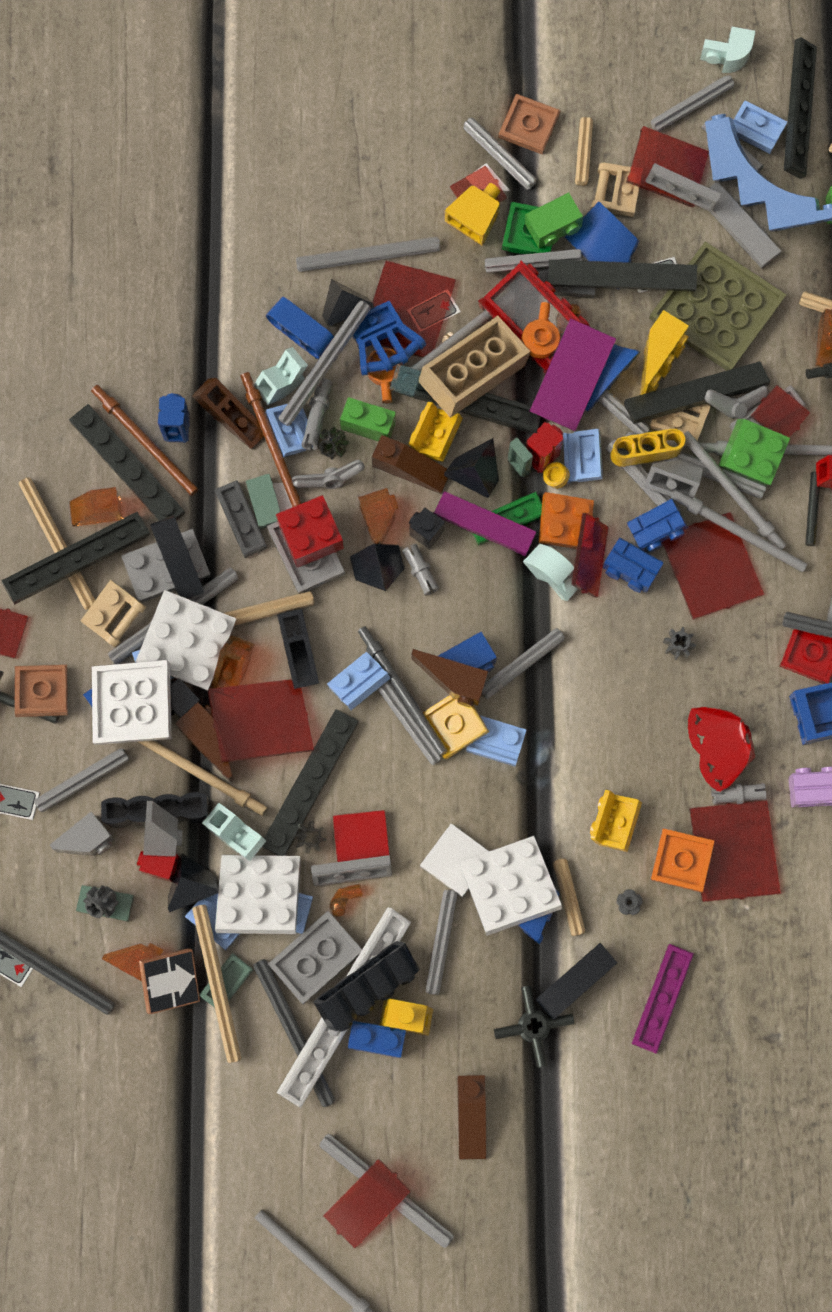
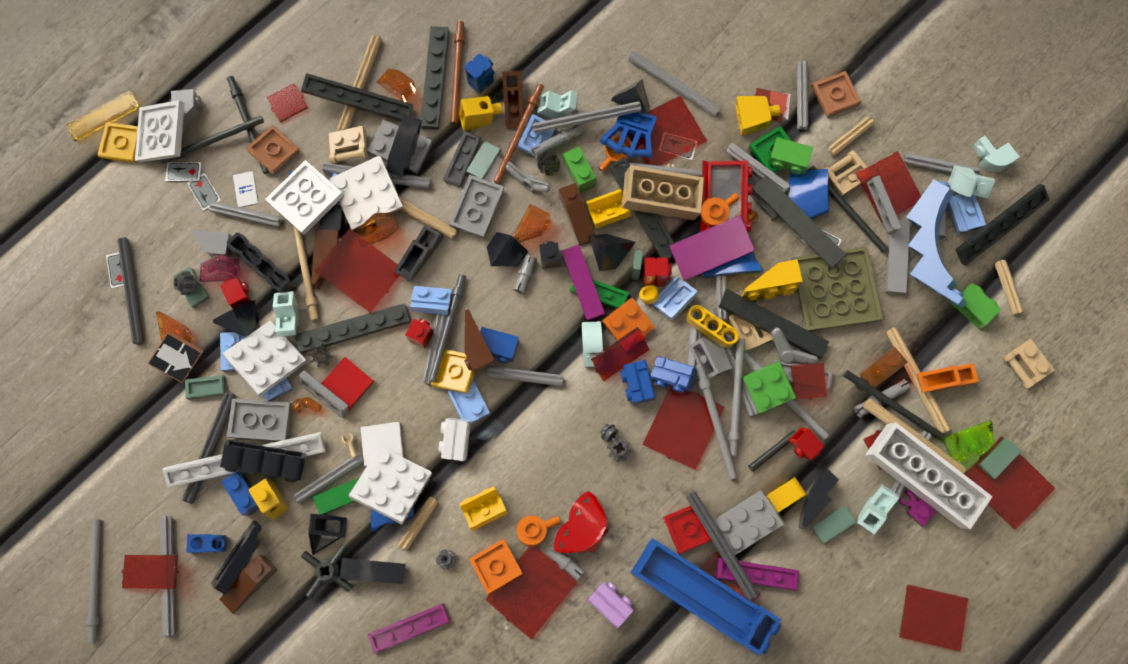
camera: 50 degrees right, 0 degrees up
(52, 757) = (245, 189): none -> white sticker
(116, 857) = (219, 269): none -> clear pink slope
(160, 832) = (246, 275): light grey slope -> none
(211, 459) = (477, 112): none -> yellow torso
(216, 983) = (196, 382): tan axle -> none
(299, 327) = (596, 86): blue beam -> none
(309, 531) = (485, 197): red brick -> none
(382, 721) = (419, 332): none -> red brick
(392, 1121) = (205, 543): none -> blue leg
(405, 380) = (618, 165): clear light blue tile -> none
(429, 891) = (350, 445): none -> tan hand
(438, 1101) = (237, 558): none -> black hinge
(468, 949) = (334, 498): none -> green tile
(492, 991) = (325, 531): none -> black slope
(523, 784) = (455, 439): none -> white brick
(653, 638) = (608, 432): none -> dark grey plate
(668, 224) = (855, 217): none -> pearl dark grey bar
(679, 794) = (533, 530): none -> orange piece
(735, 97) = (967, 183): none -> light aqua brick

